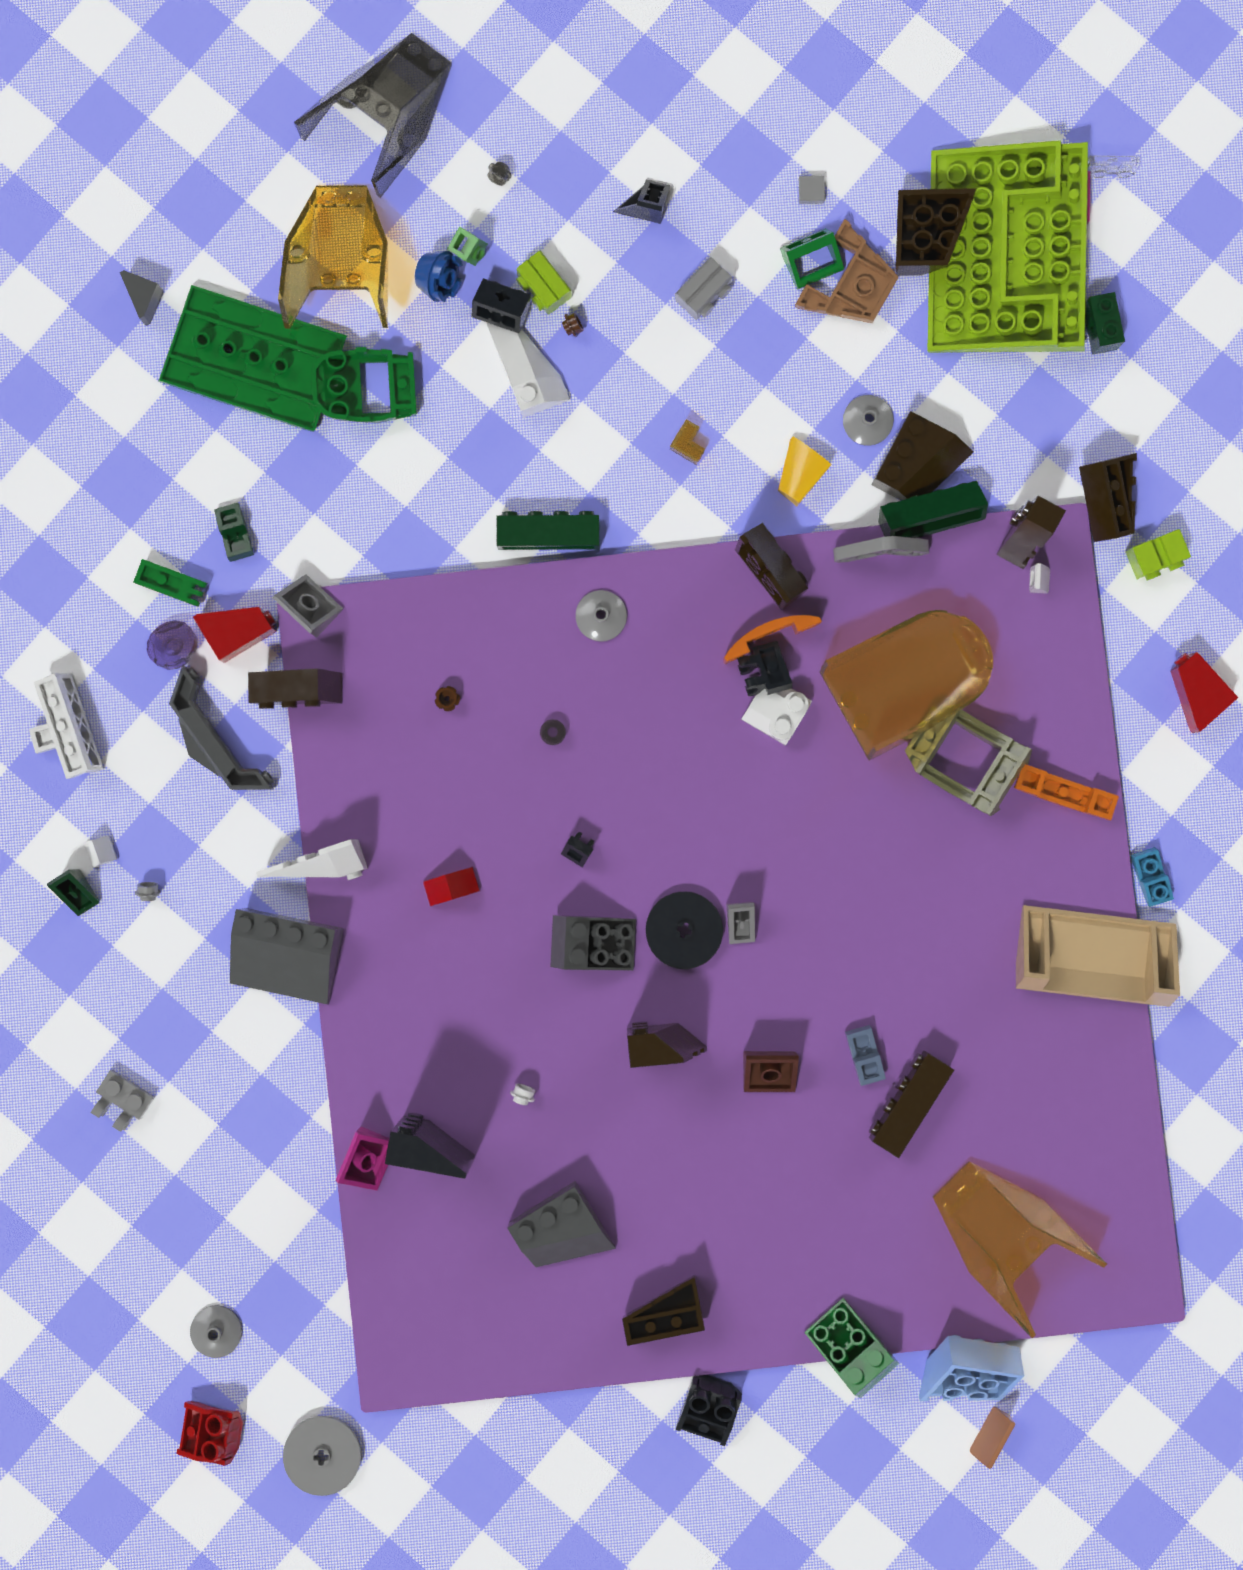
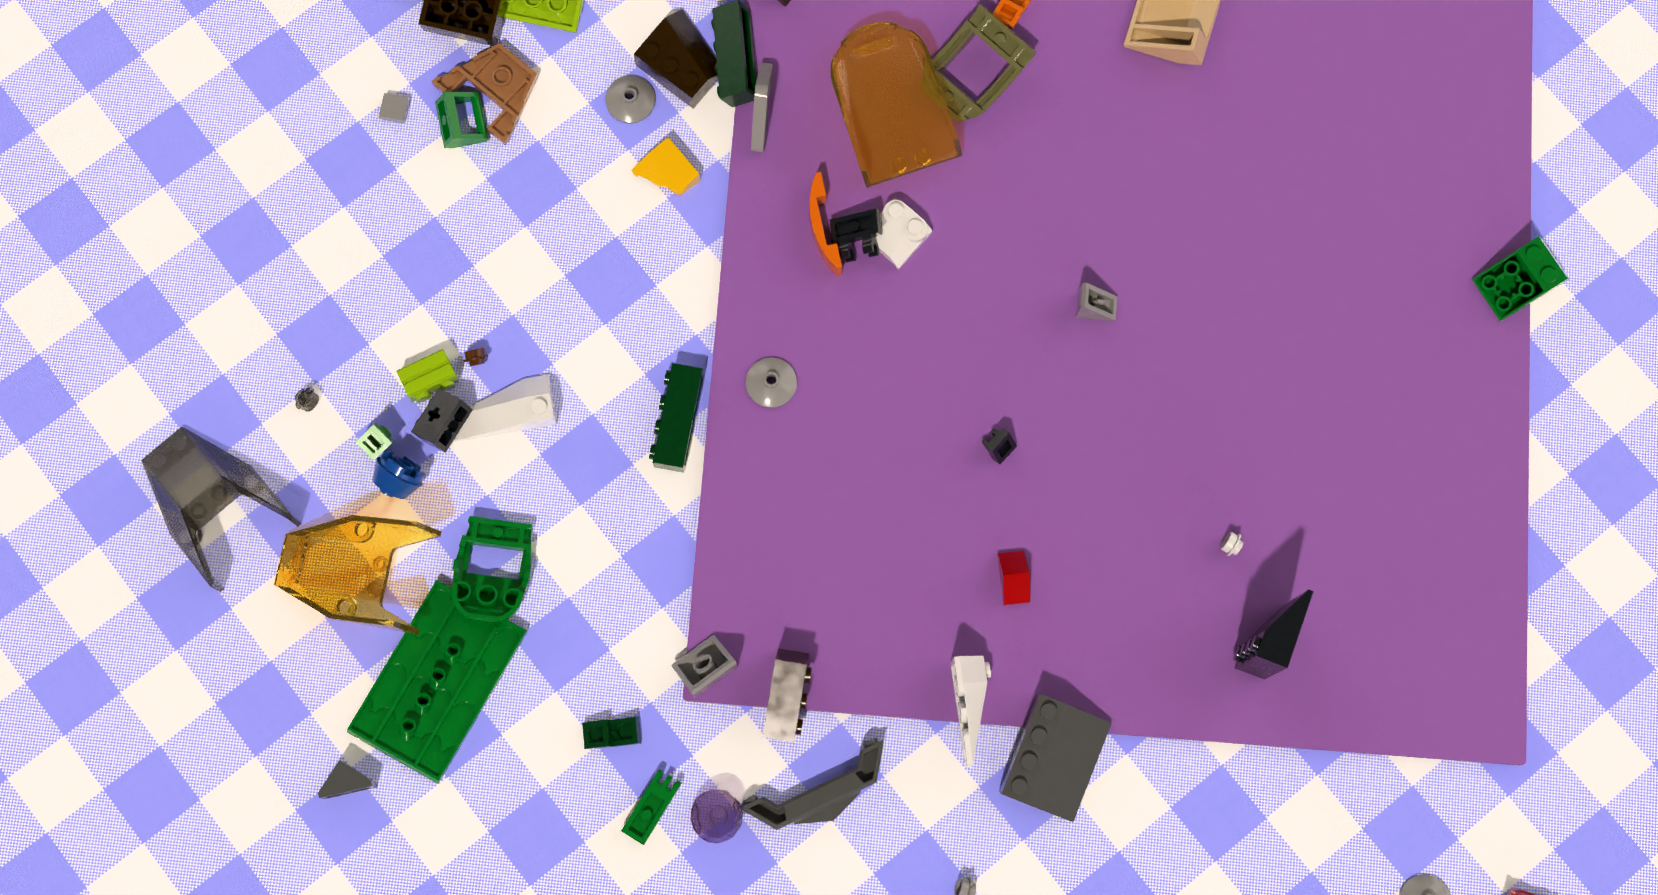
camera: 85 degrees left, 10 degrees down
(235, 630) = (713, 748): red slope -> none
(307, 1469) = (1549, 829): light grey piece -> none
(364, 1160) = (1273, 711): dark pink slope -> none
(451, 693) = (818, 544): reddish brown plate -> none
(552, 740) = (875, 456): clear smoke plate -> none
(560, 1229) = (1368, 532): dark grey wedge -> none
(592, 943) = (1093, 449): dark grey slope -> none
(647, 202) = (369, 263): black slope -> none
(661, 1044) = (1205, 401): dark brown wedge -> none
(666, 1316) = (1467, 442): dark brown wedge -> none
(684, 445) = (618, 272): clear yellow piece -> none
(695, 947) = (1113, 353): black piece -> none
(704, 289) = (469, 225): light grey brick -> none
(710, 1408) = (1563, 423): black slope -> none
(770, 1071) = (1245, 303): copper slope -> none
(771, 566) = (758, 209): dark brown wedge -> none
(865, 1055) = (1243, 215): sand blue slope -> none
(911, 1103) = (1296, 180): dark brown brick -> none
(971, 1370) = (1554, 175): light blue wedge -> none
(992, 1437) = (1620, 168): nougat slope -> none
(1002, 1232) = (1432, 121): clear yellow windscreen -> none

